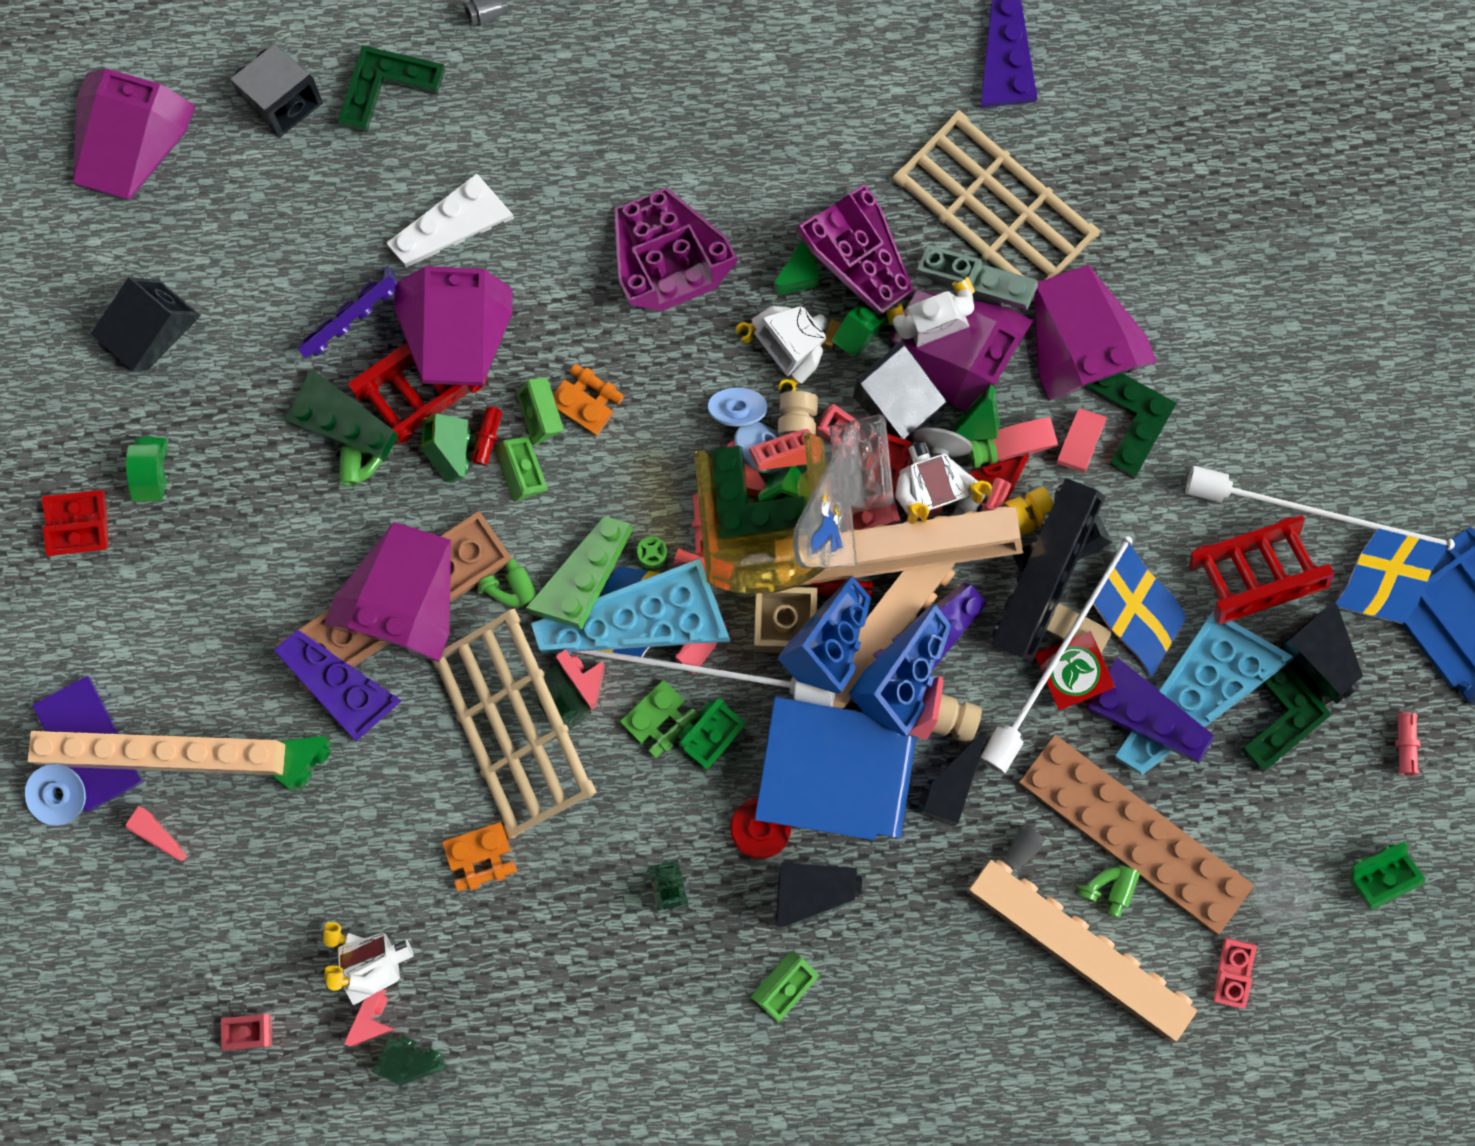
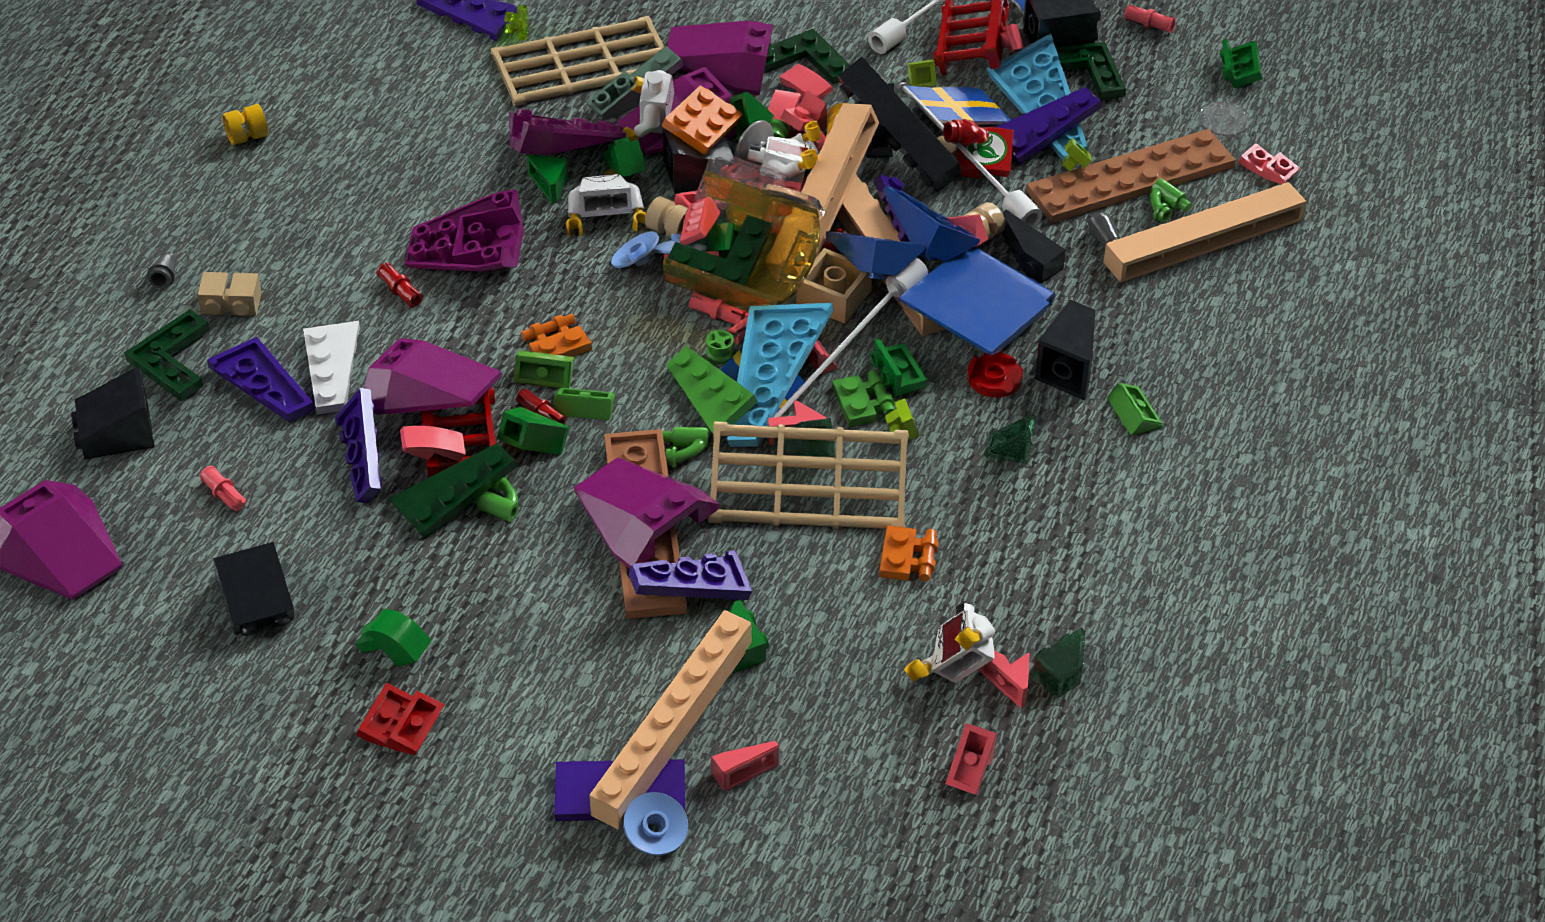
camera: 60 degrees left, 30 degrees down
(253, 225) = (222, 488): none -> coral axle
(370, 373) = (427, 440): none -> coral slope
(400, 172) = (263, 378): none -> dark purple wing
(485, 88) = (240, 299): none -> tan piece
(578, 222) = (399, 285): none -> red pin
(643, 773) = (902, 419): none -> lime tile
(930, 377) = (702, 120): none -> orange plate
(1010, 115) = (520, 22): none -> clear neon green tile
(1017, 467) = (810, 109): none -> coral slope
(1075, 641) = (964, 132): none -> red animal
(1116, 769) = (1075, 155): none -> lime tile
(1164, 549) = (922, 73): none -> lime tile
(1266, 619) = (1011, 38): none -> coral slope

